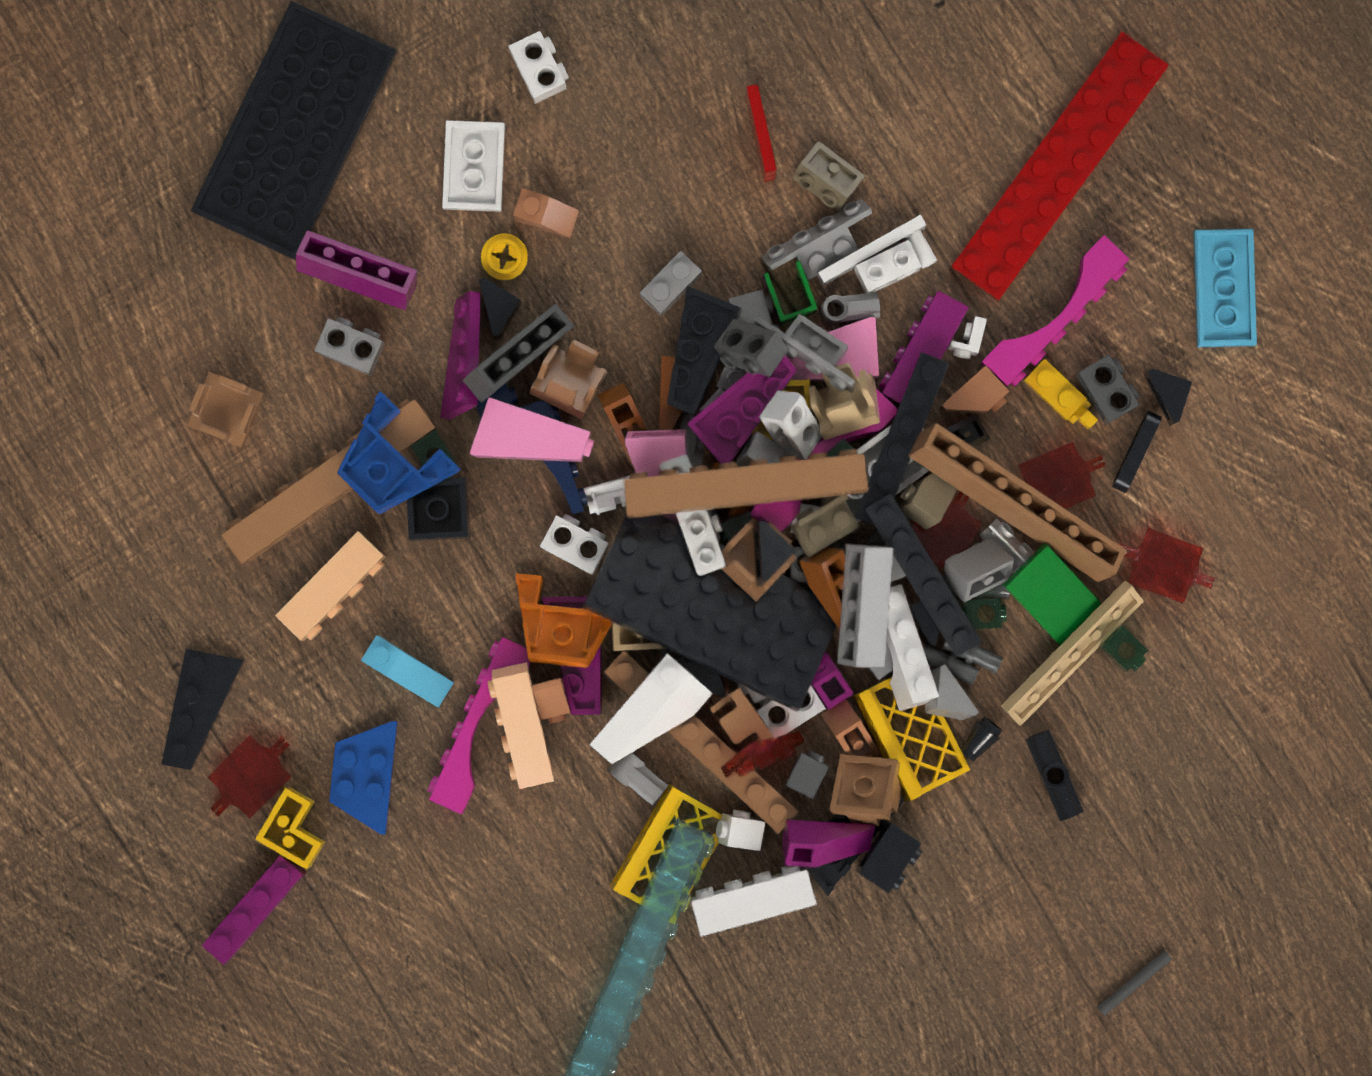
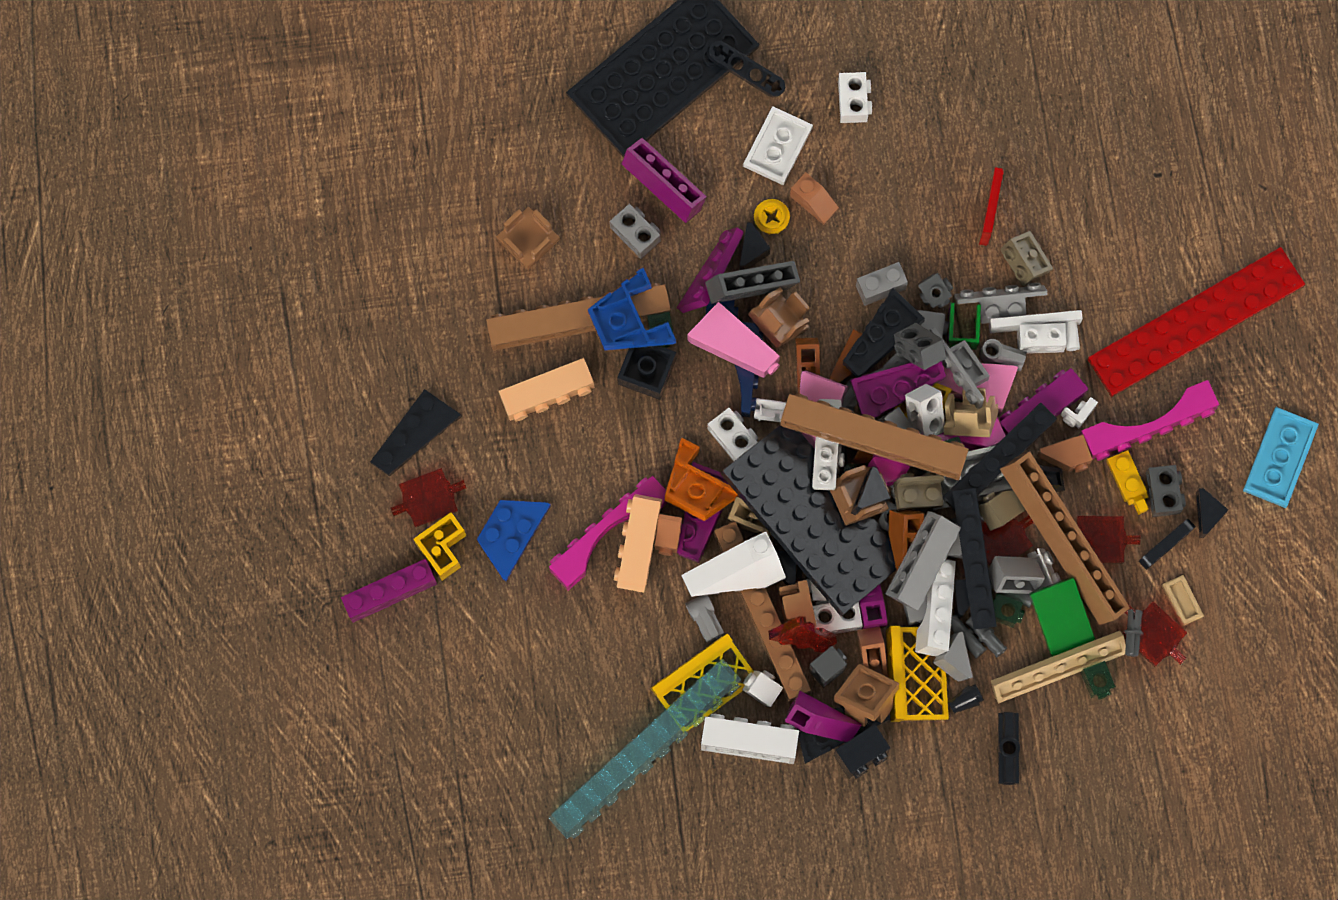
camera: 25 degrees right, 10 degrees down
(394, 88) = (744, 72): none -> black beam
(407, 671) = (573, 471): medium azure slope -> none
(729, 260) = (935, 282): none -> dark grey brick
(1143, 578) = (1133, 633): none -> dark grey axle
(1181, 510) = (1182, 600): none -> tan tile

